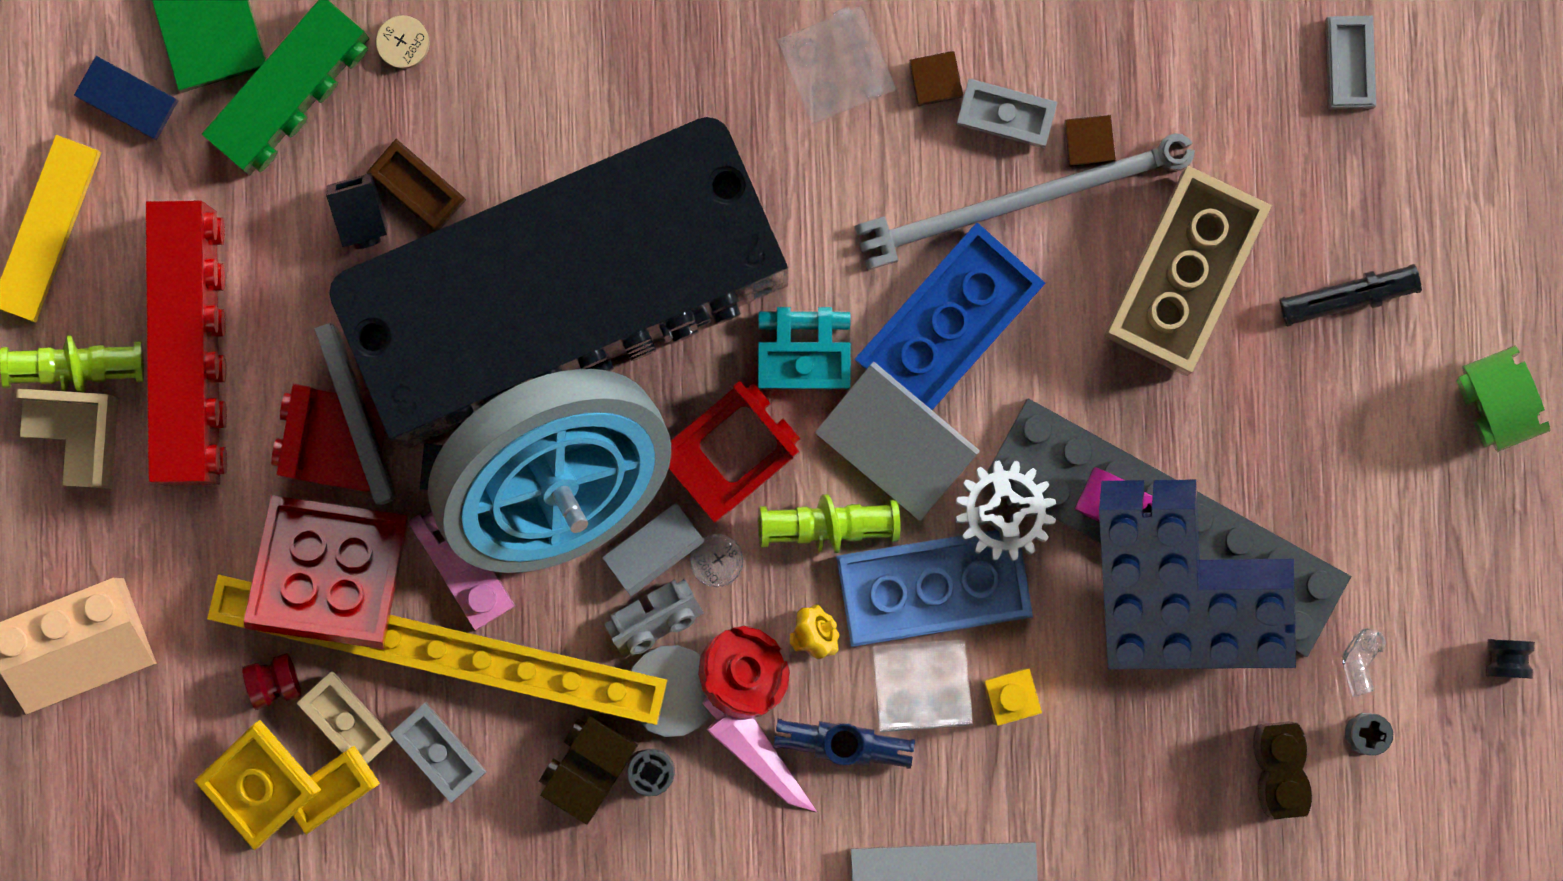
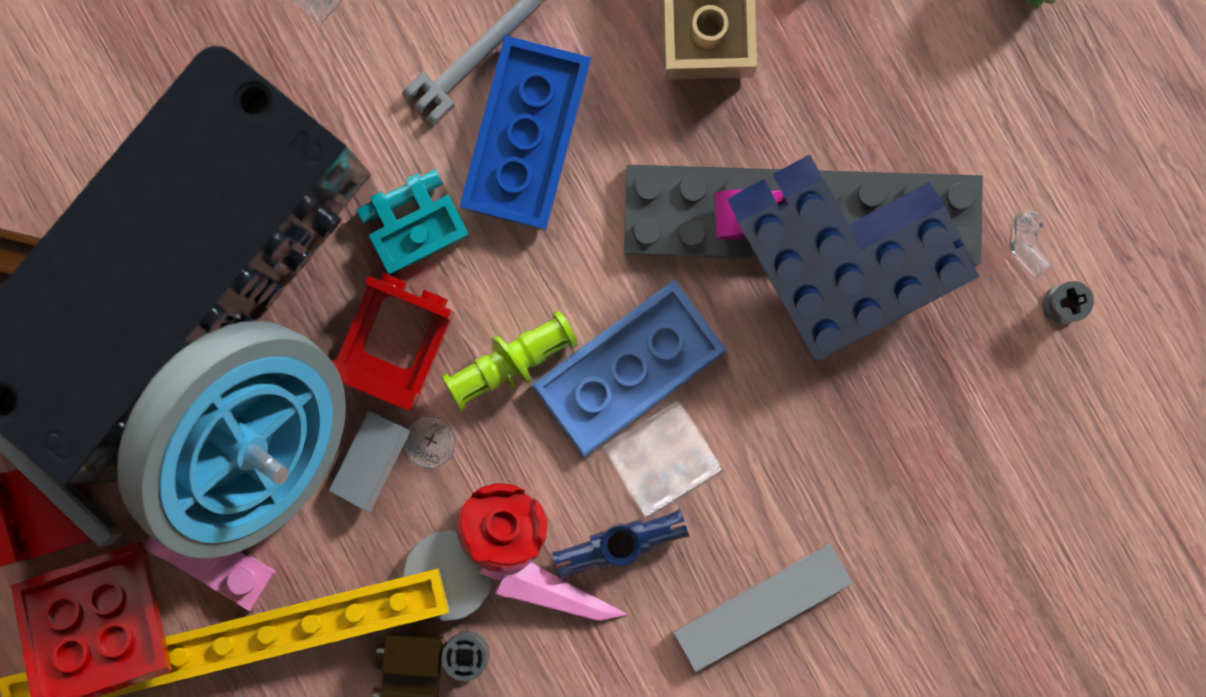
camera: 30 degrees left, 0 degrees up
(636, 631) = (391, 539): light grey hinge -> none
(815, 632) = (546, 461): yellow piece -> none
(897, 441) = (532, 258): light grey tile -> none
(1002, 489) = (644, 254): white gear -> none
(1011, 696) = (745, 428): yellow brick -> none
(1282, 783) = (1015, 382): dark brown brick -> none
(1510, 658) = (1154, 176): black wheel -> none

